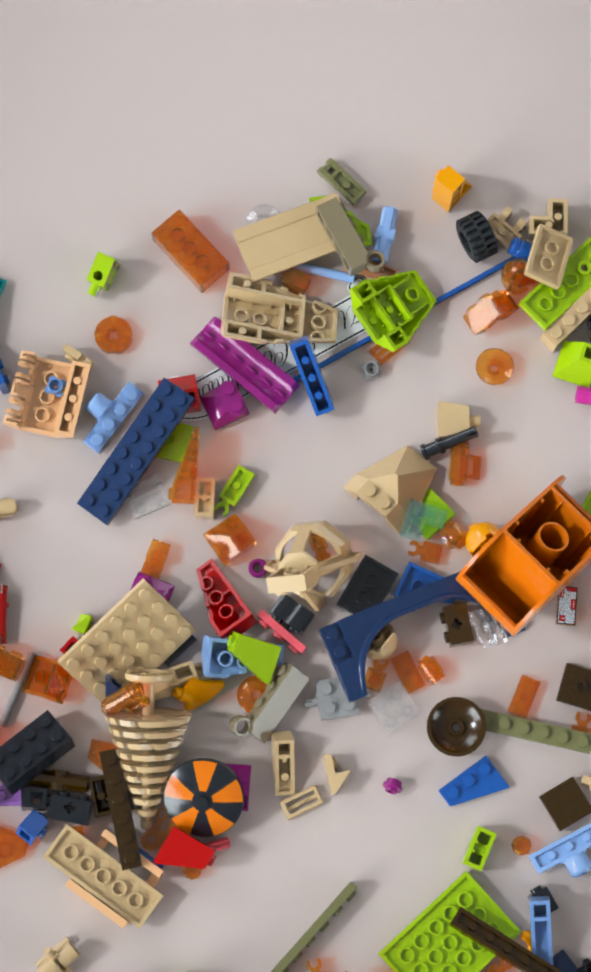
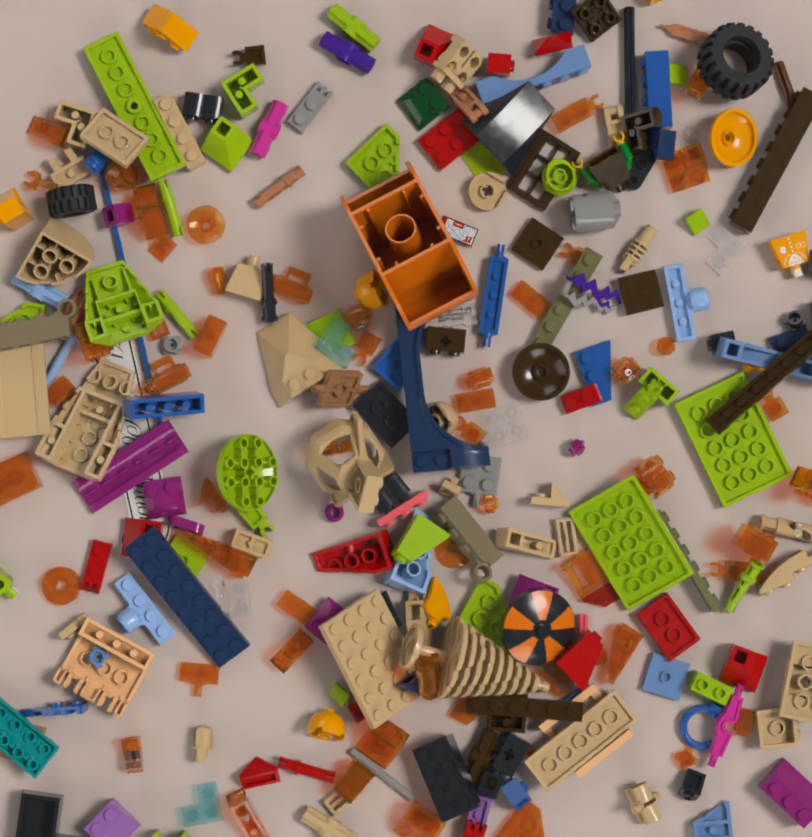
camera: 75 degrees left, 10 degrees up
(49, 621) = (326, 725): none -> light orange cylinder
(64, 486) = (199, 675): none -> clear orange plate
(112, 566) = (291, 651): none -> clear orange slope
(141, 362) = (96, 565): none -> red hinge
(191, 945) = (665, 677): none -> medium blue plate
(204, 436) = (182, 523): none -> magenta beam
(204, 741) = (485, 611): none -> lime plate
(209, 892) = (623, 646): none -> clear orange slope
(230, 539) = (298, 531): clear orange slope -> none
(241, 932) = (668, 627): none -> red tile
(242, 444) = (209, 491): none -> clear orange slope
(254, 857) = (602, 596): none -> clear red tile
(271, 471) = (246, 472): none -> lime bracket
(276, 834) = (589, 568): none -> clear orange plate
(305, 715) = (489, 509): none -> clear orange plate
(314, 672) = (450, 488): none -> tan tile
(315, 868) = (631, 542): none -> lime plate
(337, 373) = (166, 379): none -> clear orange piece
(341, 295) = (91, 351): none -> clear orange slope
(379, 535) = (339, 388): none -> medium nougat plate
(387, 871) = (654, 476): none -> clear orange brick
(390, 401) = (210, 336): none -> clear orange brick
(405, 359) = (172, 308): none -> lime pin
(422, 237) = (57, 255): none -> tan brick
(442, 775) = (581, 398): none -> red plate
(446, 392) = (217, 279): none -> clear orange cone
(460, 334) = (162, 247): none -> clear orange slope
(461, 836) = (643, 399): none -> lime plate
(477, 283) = (118, 215): none -> magenta brick
(484, 204) = (38, 181): none -> clear orange bar
(484, 811) = (625, 370): none -> clear orange head
(505, 326) = (170, 207): none -> lime pin
(515, 659) = (493, 295): none -> blue plate
(534, 199) = (48, 131): none -> clear orange slope
(548, 760) = (596, 295): none -> piece
(556, 426) = (279, 186): none -> nougat pin

